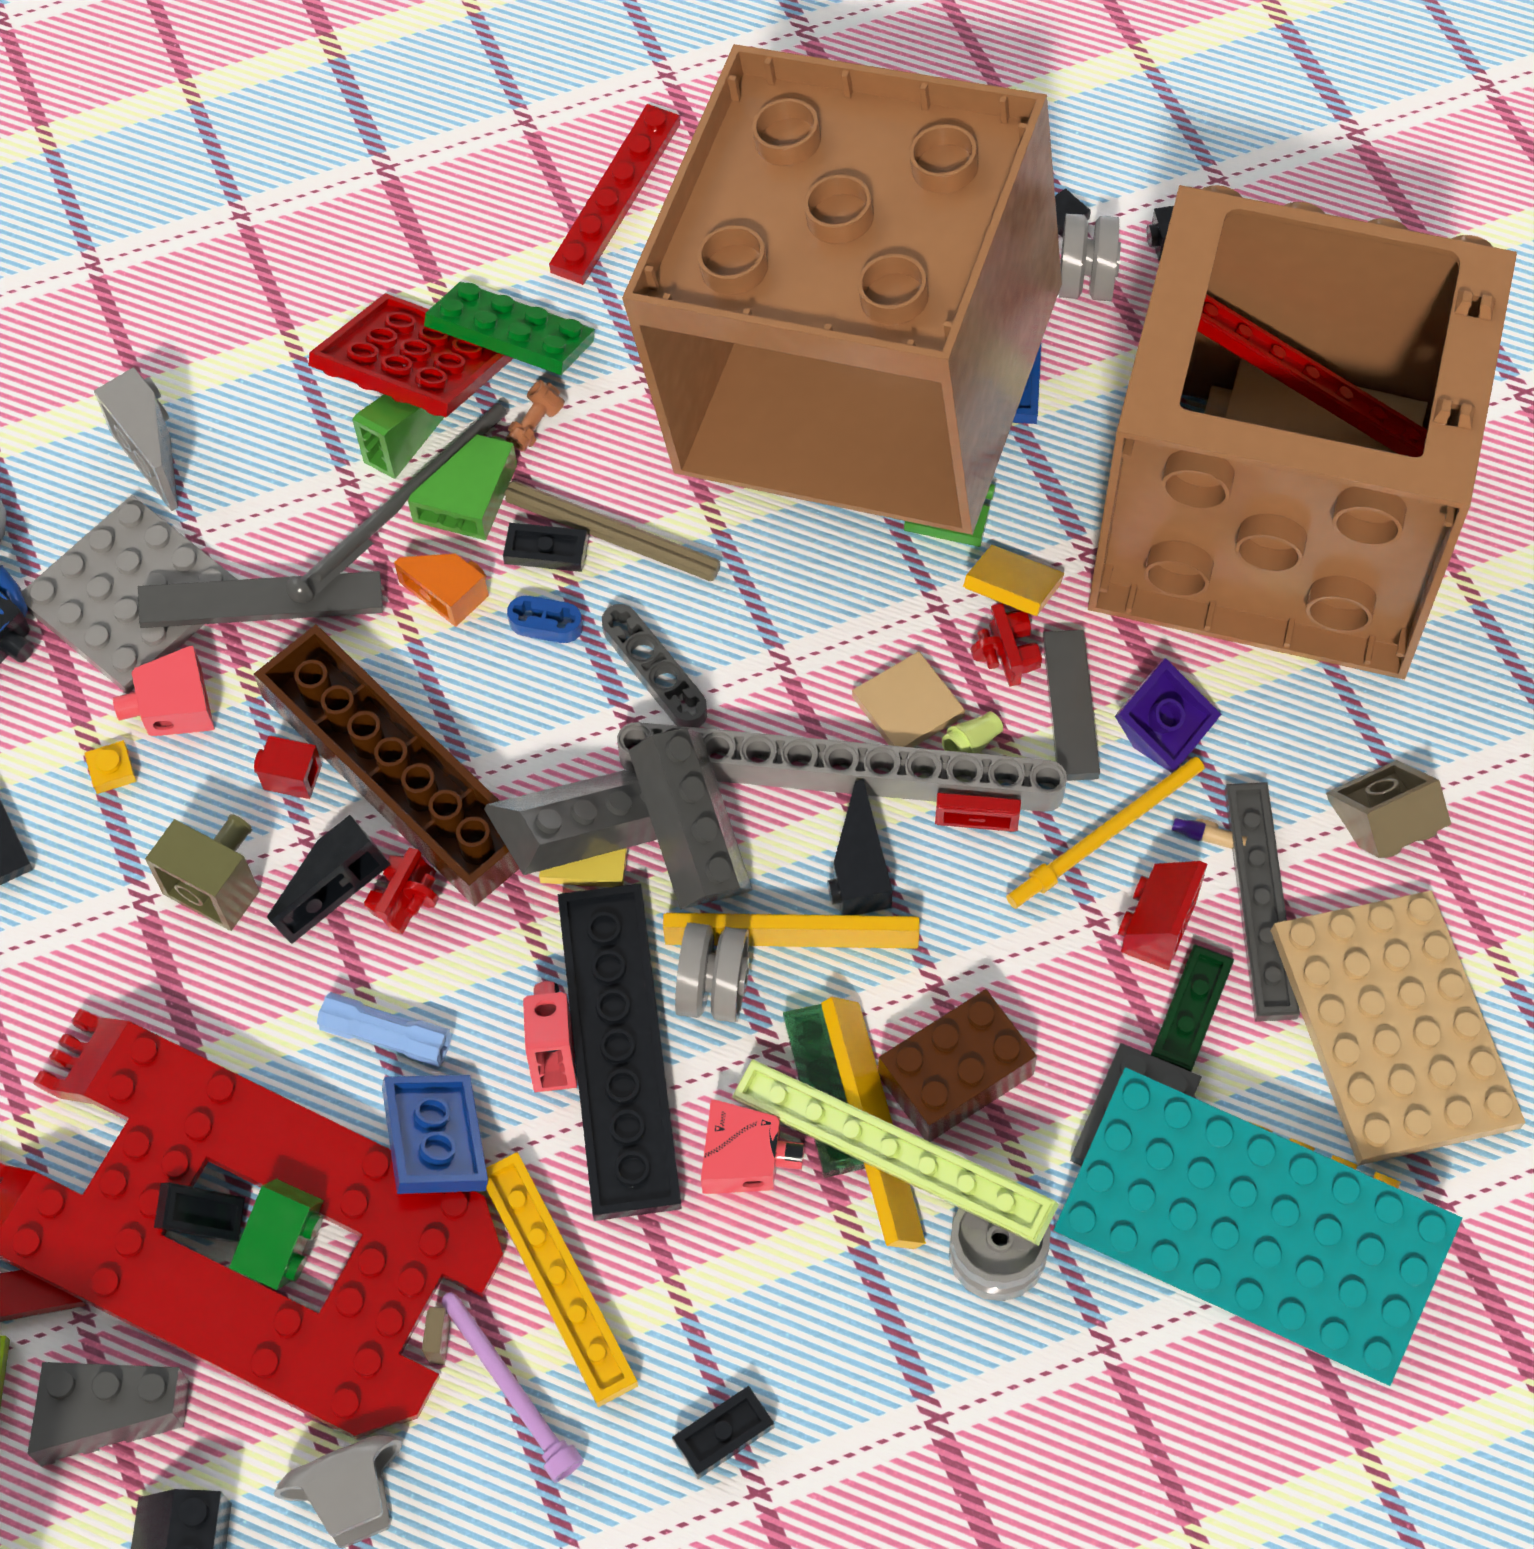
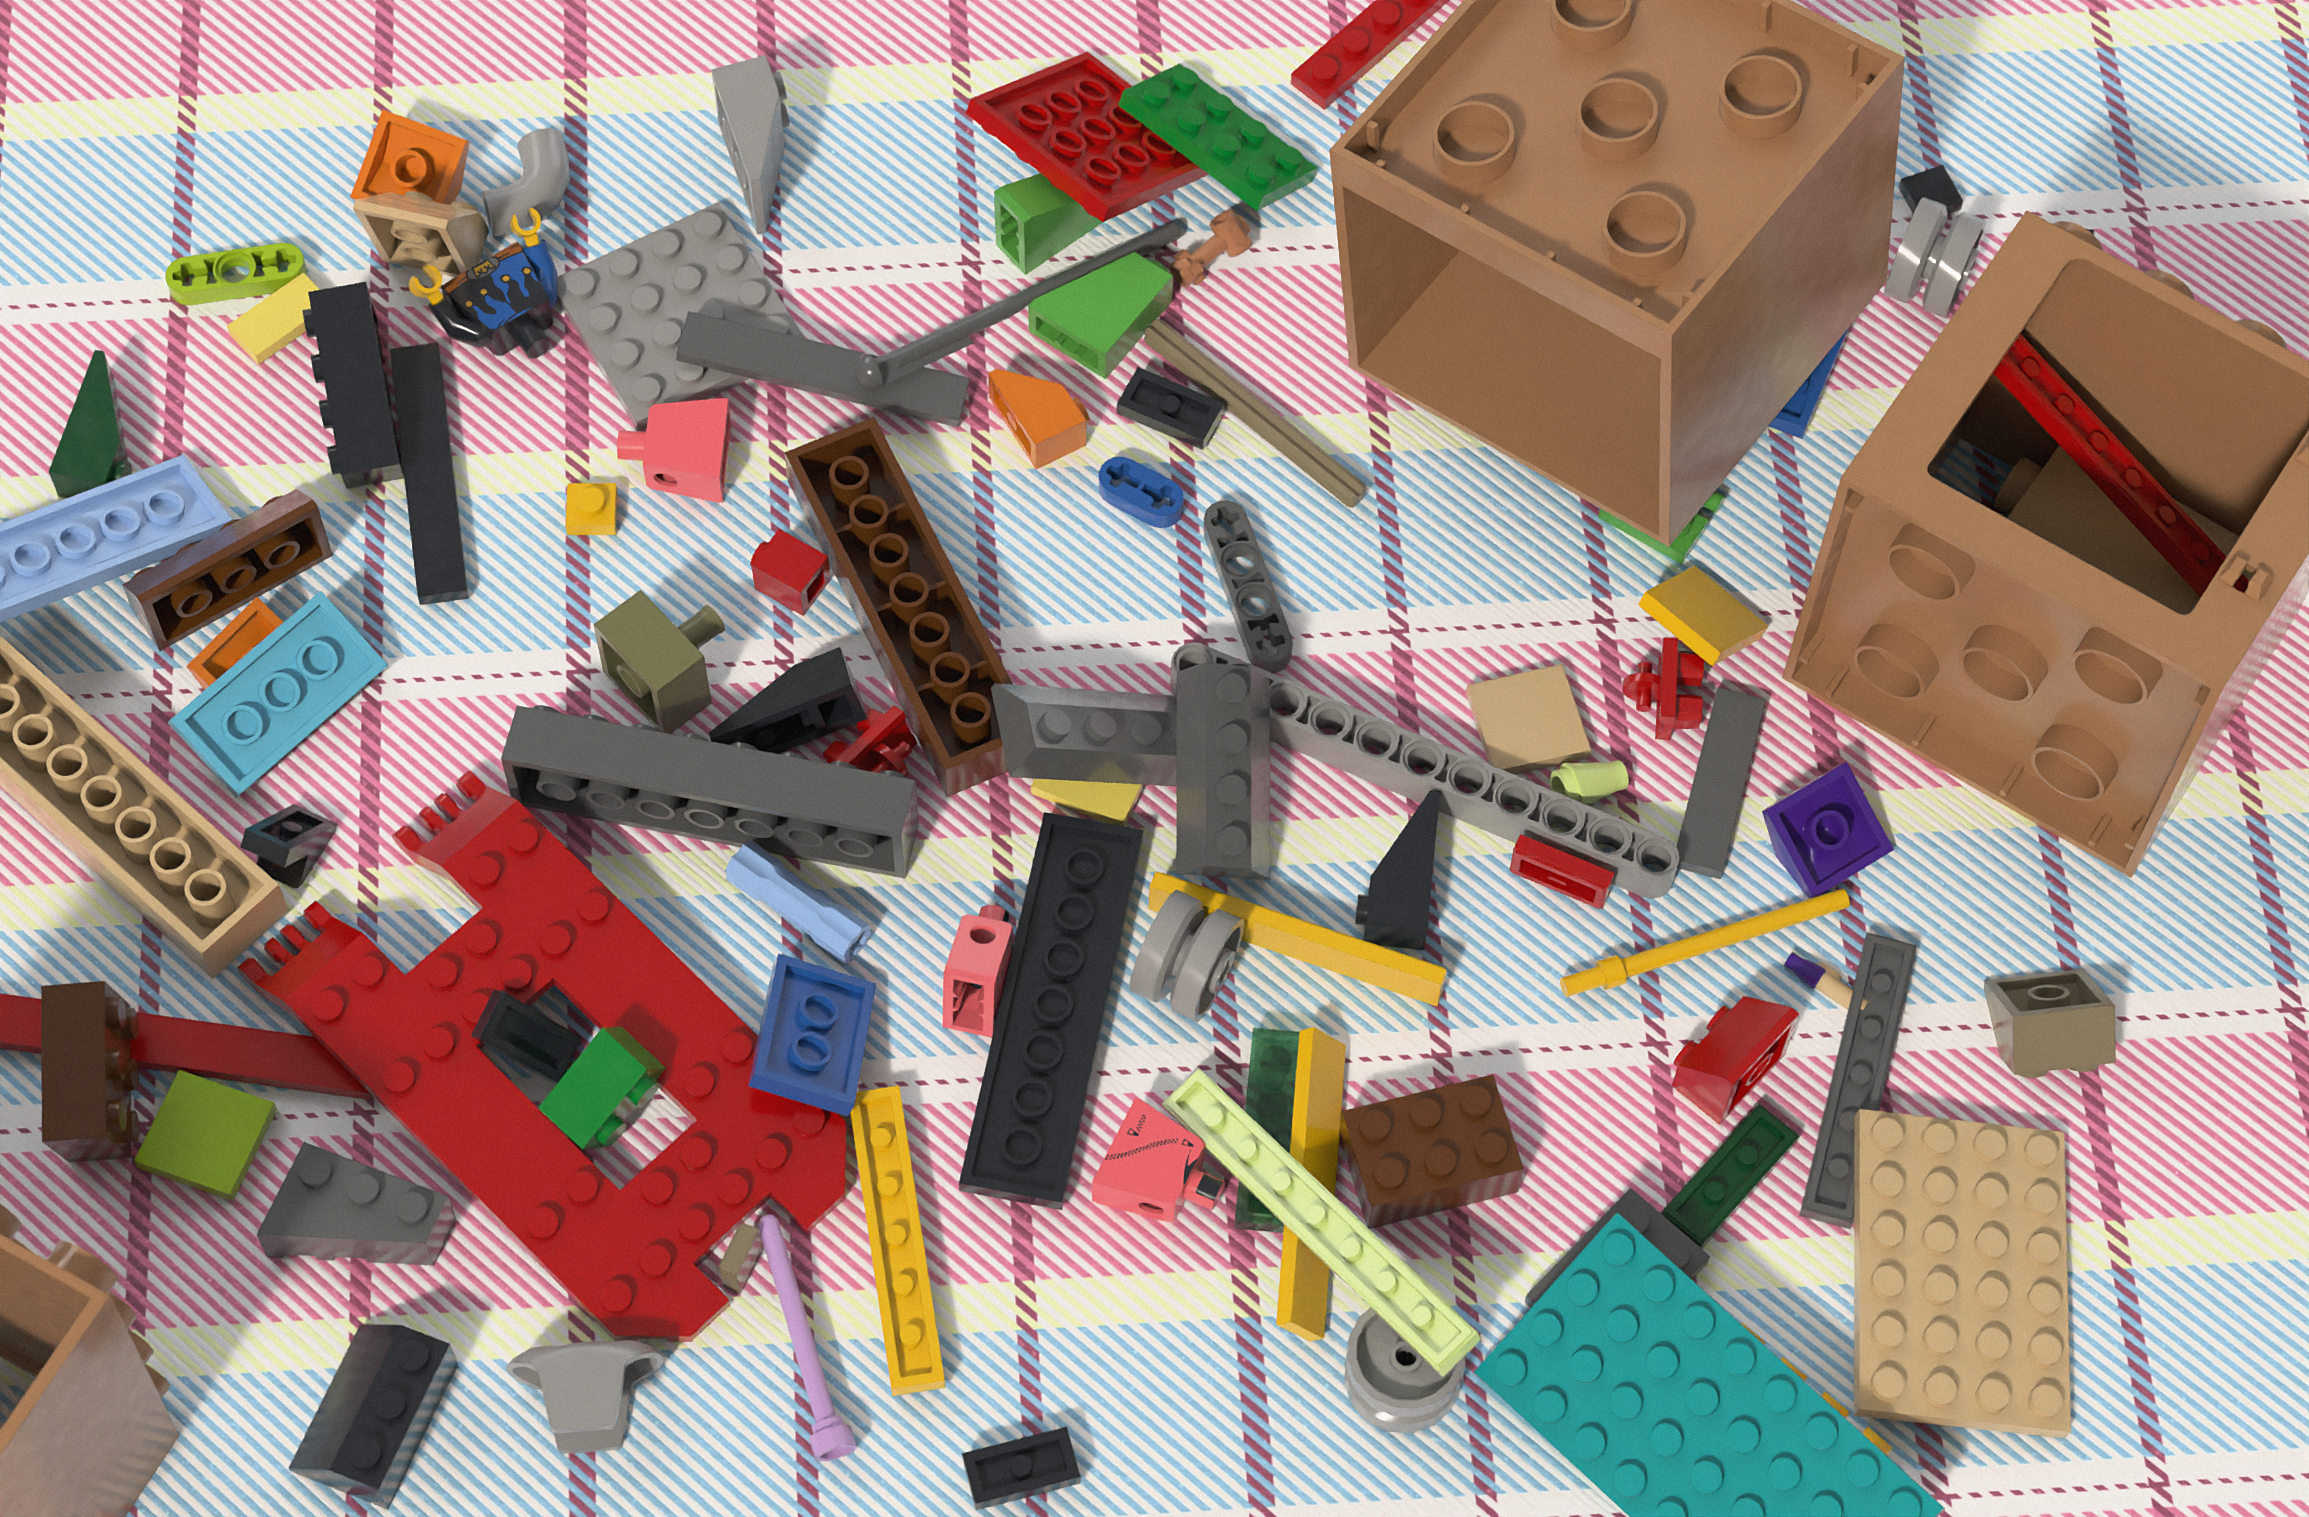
camera: 15 degrees right, 0 degrees up
(283, 962) = (711, 790): none -> dark grey brick

